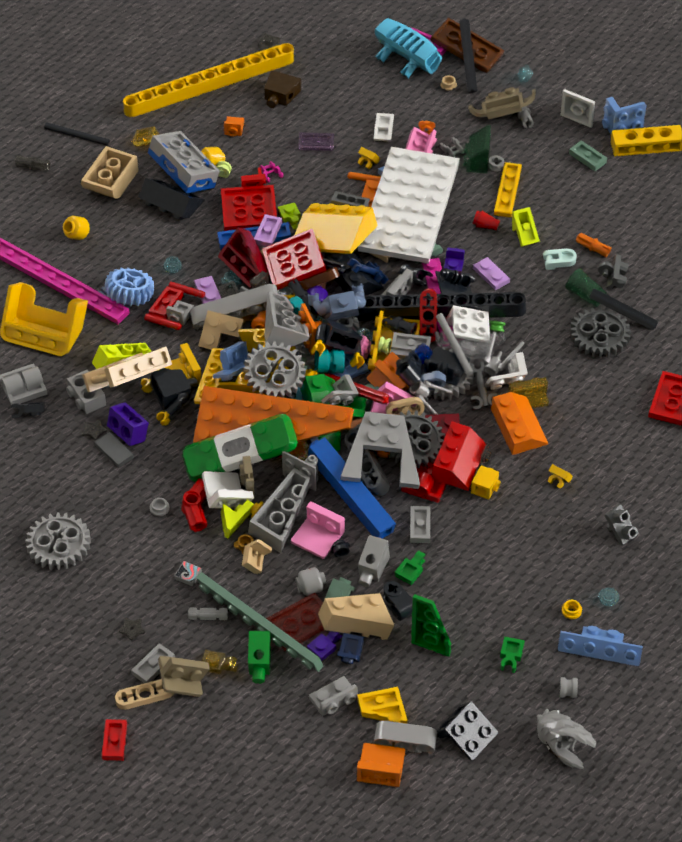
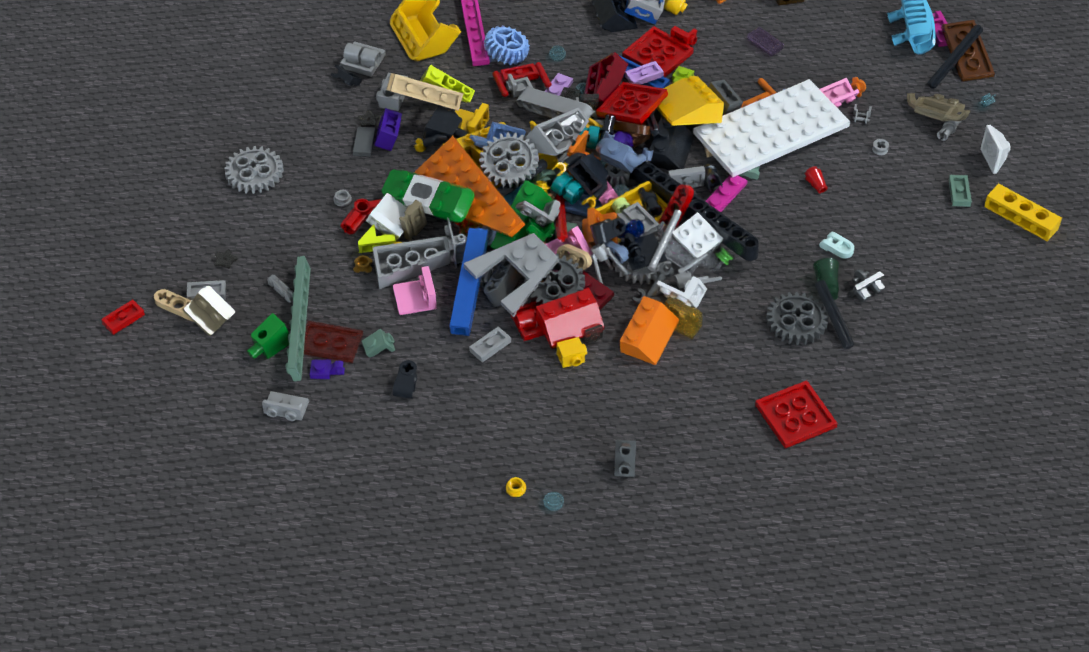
camera: 45 degrees right, 0 degrees up
(187, 573) = (304, 250): tile -> none
(215, 325) = (525, 110): tan plate -> none
(218, 661) = (245, 322): clear yellow plate -> none
(226, 169) = (673, 15): yellowish green bush -> none
(254, 555) = (355, 275): tan bracket -> none
(276, 169) = (701, 38): dark pink piece -> none
(310, 581) = (368, 320): light grey head -> none
(340, 548) = (417, 316): black plate -> none
(350, 648) = (334, 385): dark blue bracket -> none
(357, 614) = (361, 363): tan wedge -> none
(368, 156) = (787, 77): yellow tile -> none
(369, 268) = (685, 152): dark blue bar -> none
(373, 560) = (421, 339): light grey torso -> none
(381, 764) = (252, 474): orange bracket -> none
(382, 705) = (306, 439): yellow wing -> none
(383, 127) = (828, 66): white slope -> none
(408, 736) = (291, 470): light grey beam -> none
(411, 569) = (443, 367): green plate -> none
(428, 627) = (393, 408): green wedge -> none
(448, 83) = (919, 67): tan plate -> none
(454, 259) = (755, 191): dark purple bracket -> none
(454, 281) = (731, 204): black hinge -> none
(468, 730) = (335, 504): bracket -> none
(478, 151) = (873, 128): clear green slope -> none
(491, 273) = (772, 219): lavender plate -> none
(507, 189) = (865, 171): yellow tile -> none
(511, 652) = (435, 478): green plate -> none
(524, 225) = (837, 203): neon yellow slope -> none
(560, 474) = (631, 391): yellow tile -> none
(561, 734) = (384, 563): light grey head -> none
(568, 687) = (439, 535): light grey wheel -> none
(593, 244) = (877, 255): orange axle -> none
(601, 645) = (502, 527): medium blue bracket -> none
(624, 117) = (1022, 181): medium blue bracket -> none

